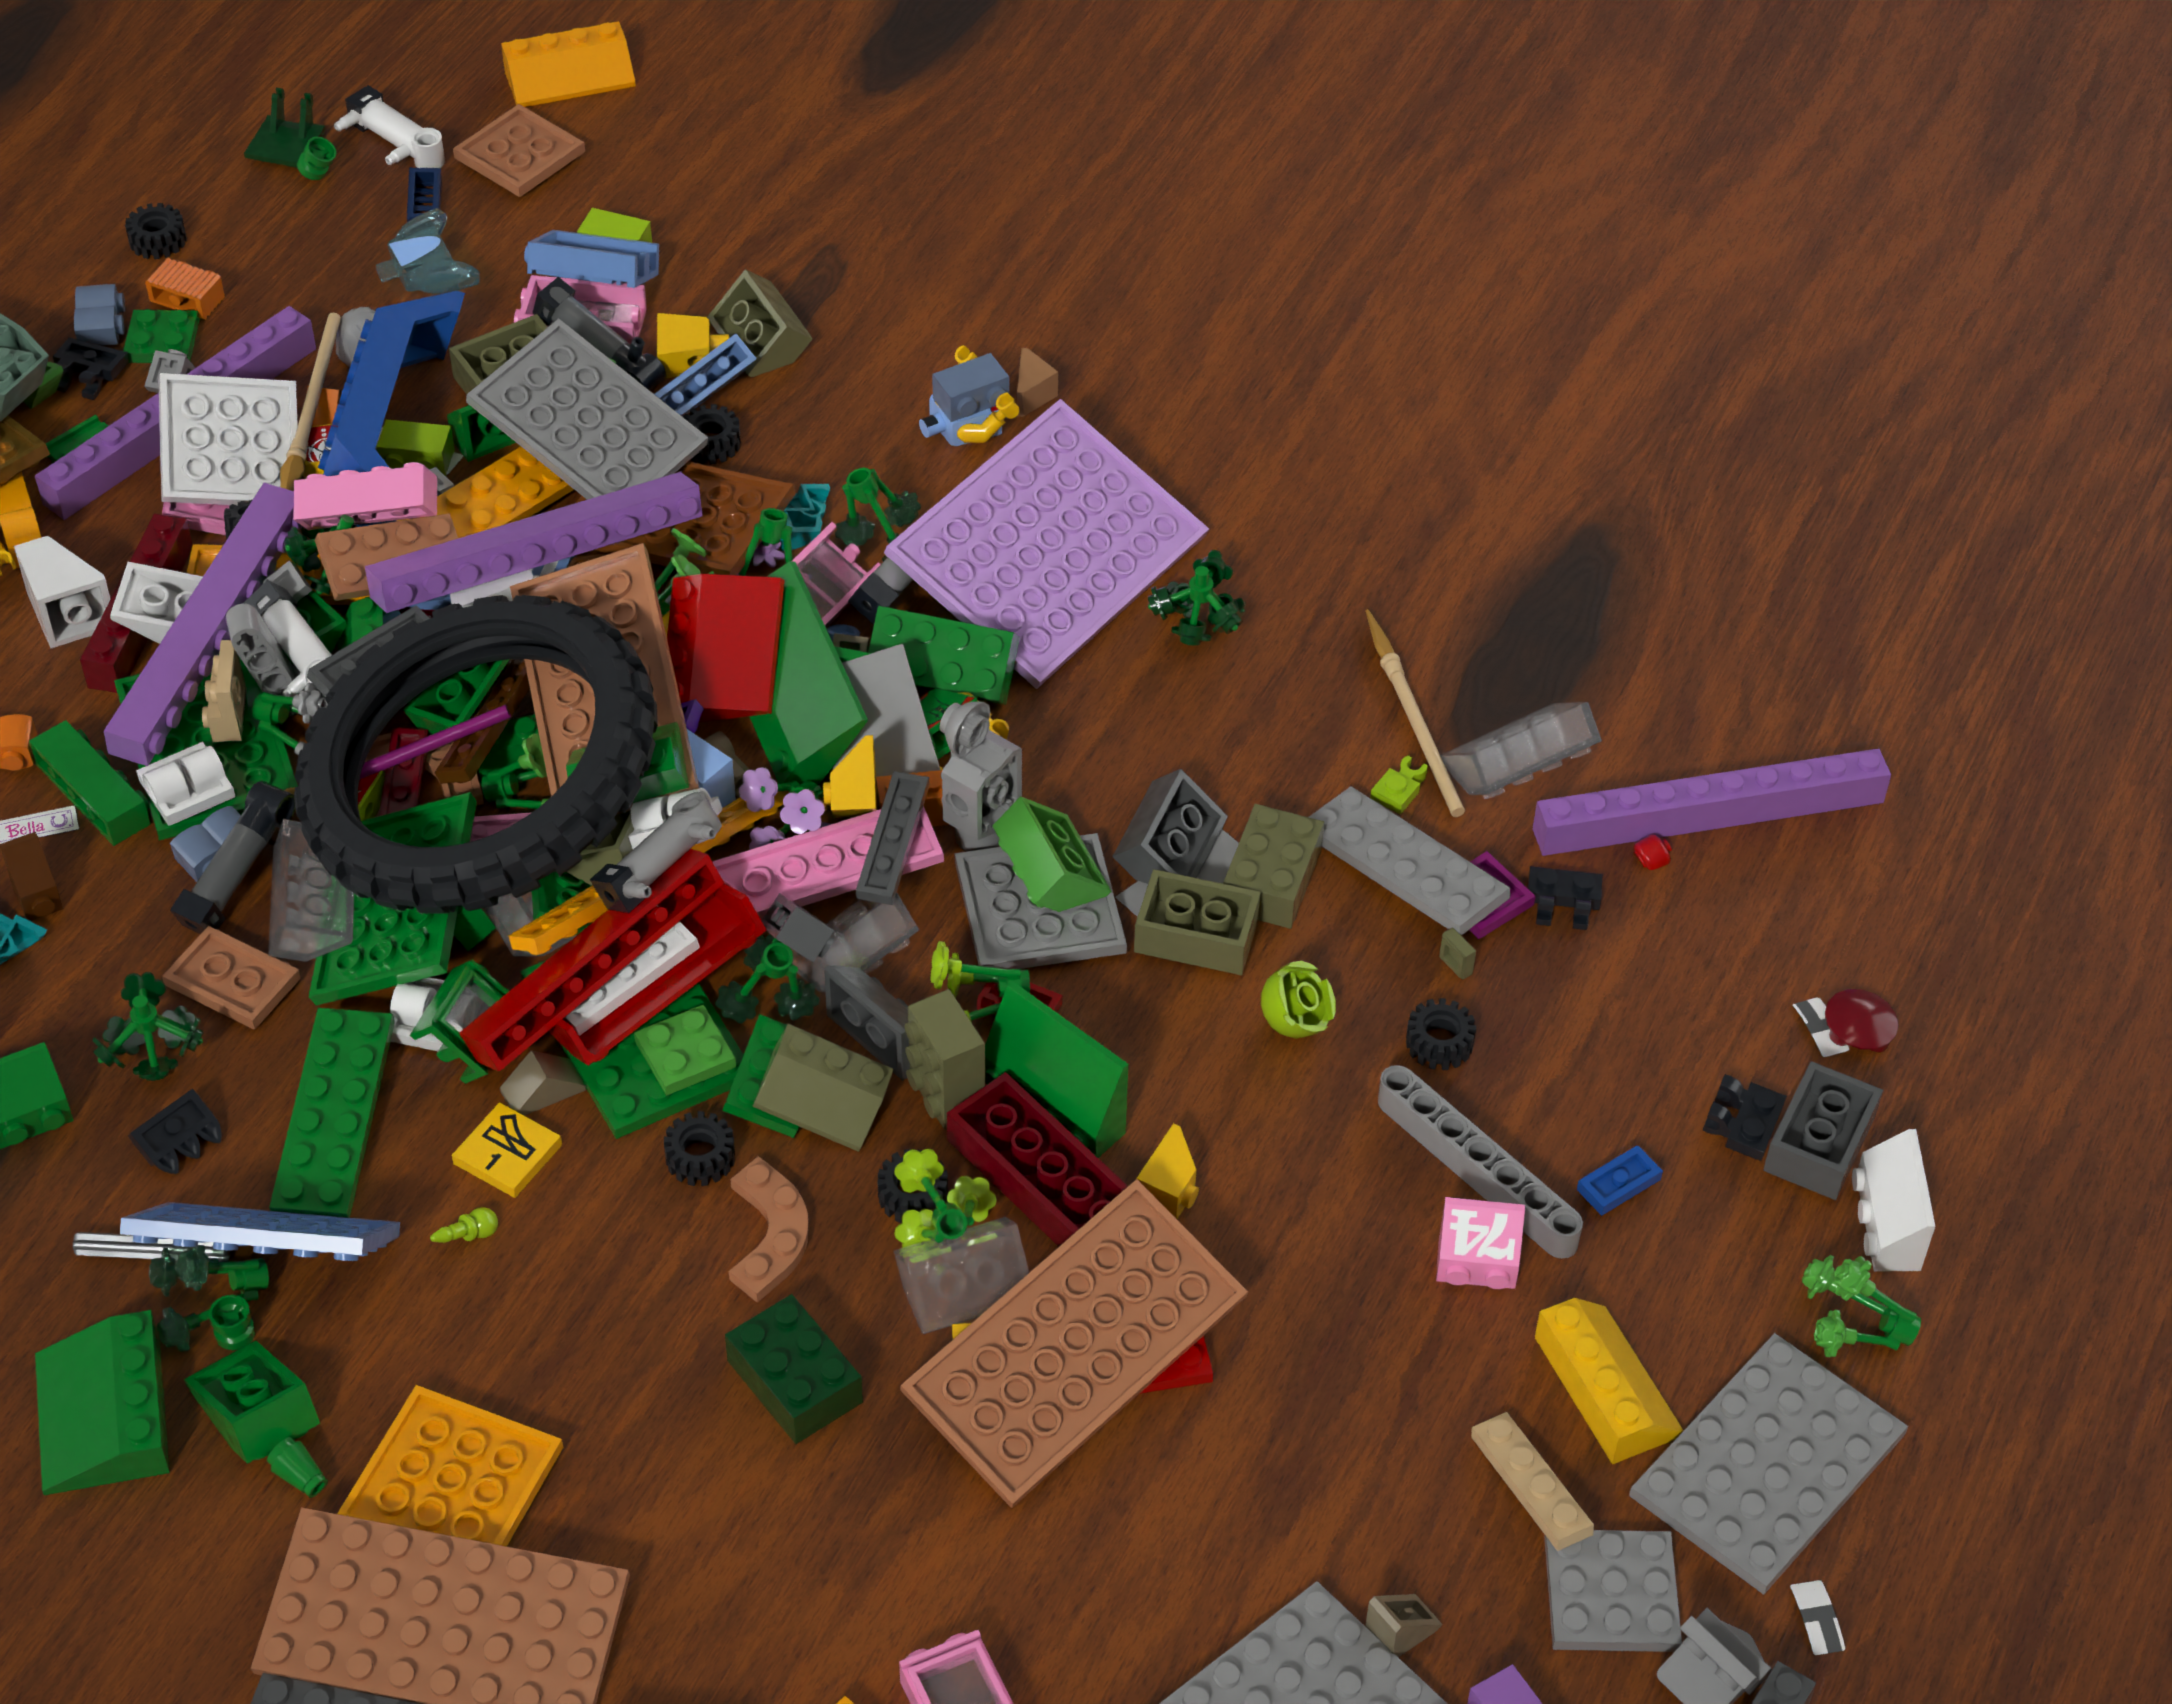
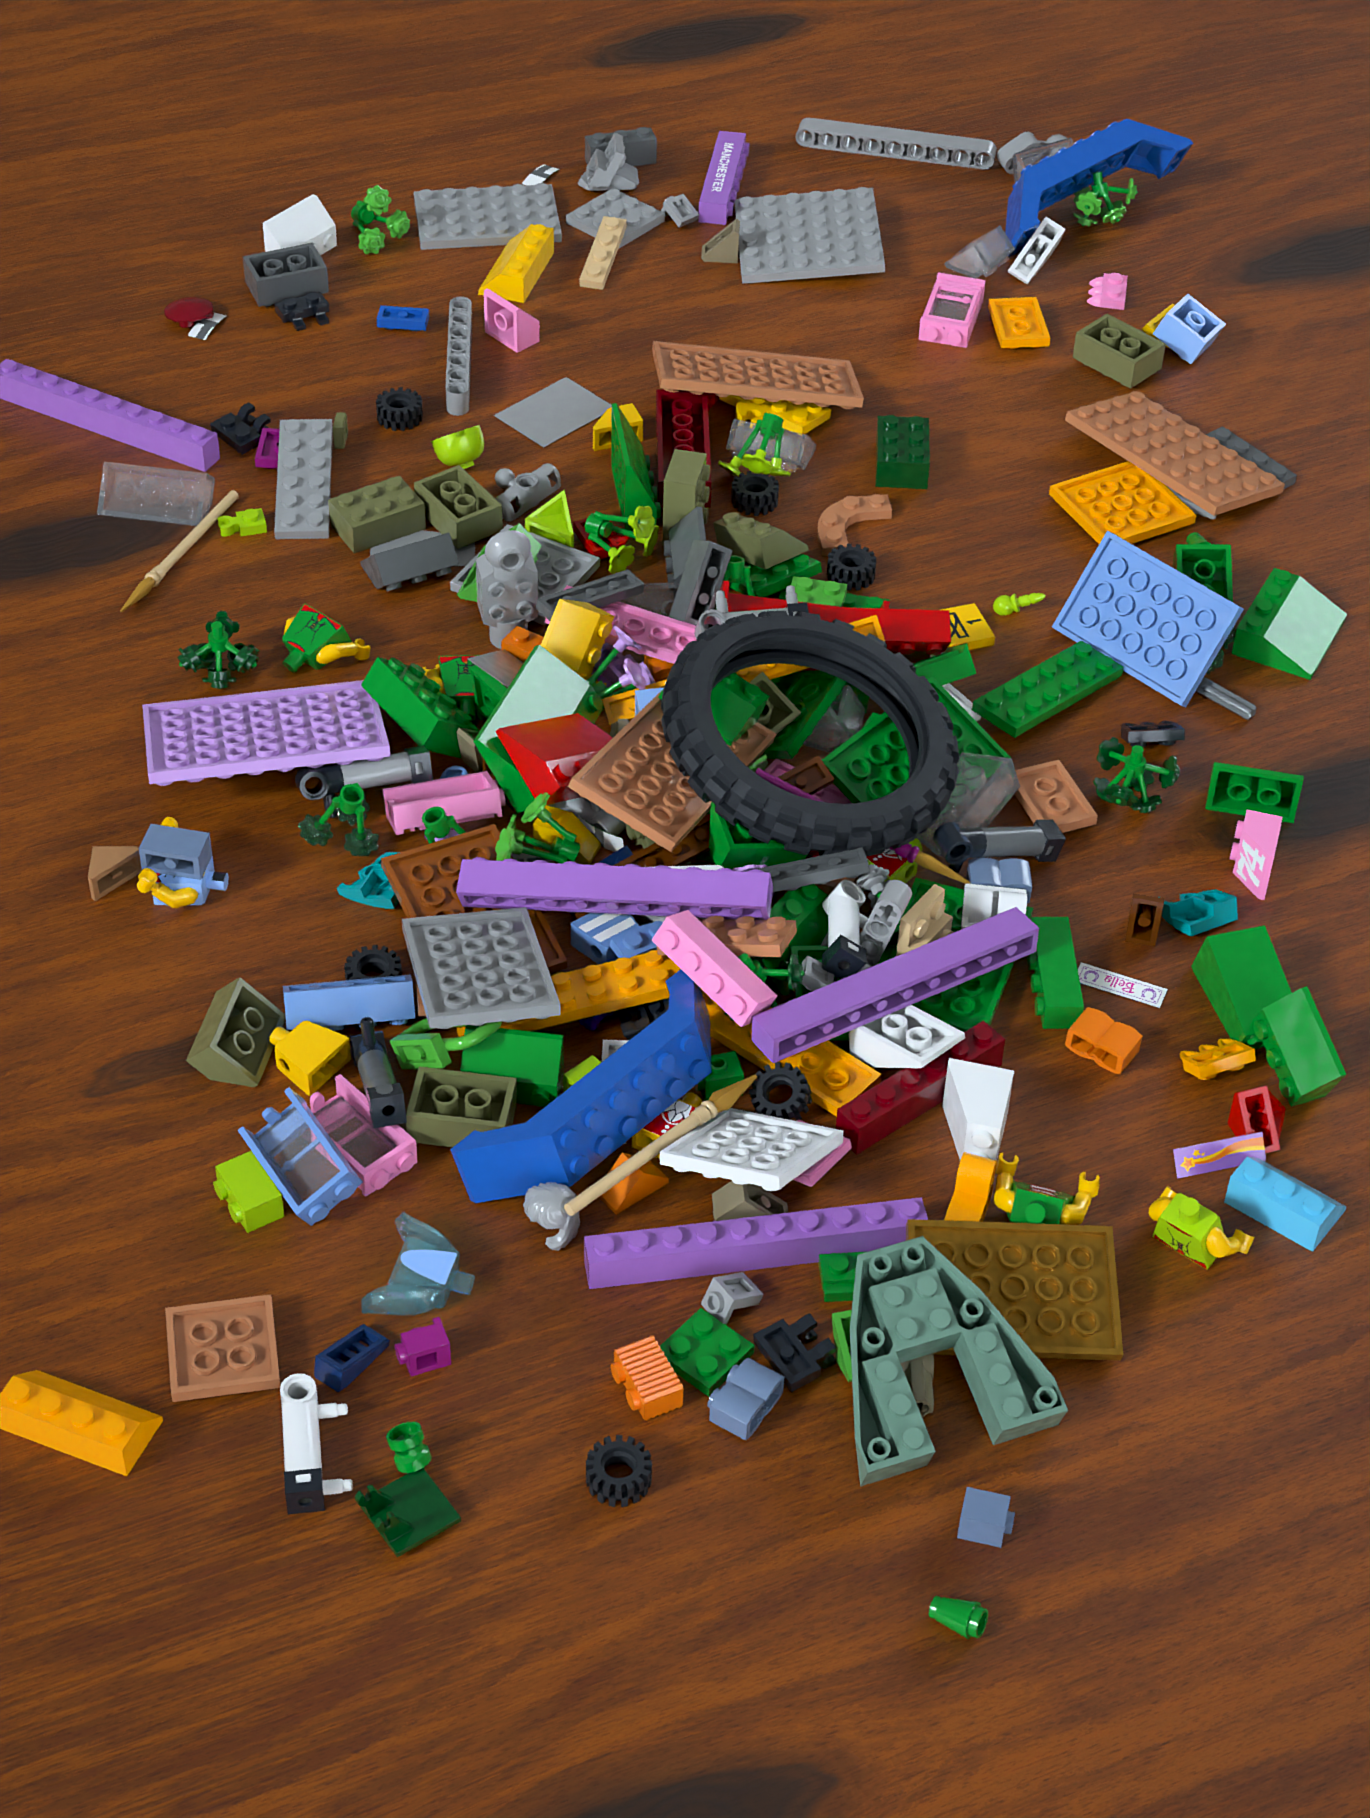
camera: 140 degrees left, 5 degrees down
(370, 220) = (424, 1348): none -> magenta brick
(1068, 969) = (552, 521): none -> lime slope
(1139, 678) = (318, 640): none -> green torso
(1164, 1012) = (526, 489): none -> light grey piece
(1283, 1175) = (554, 412): none -> light grey sticker
(1542, 1657) = (679, 210): none -> light grey bracket

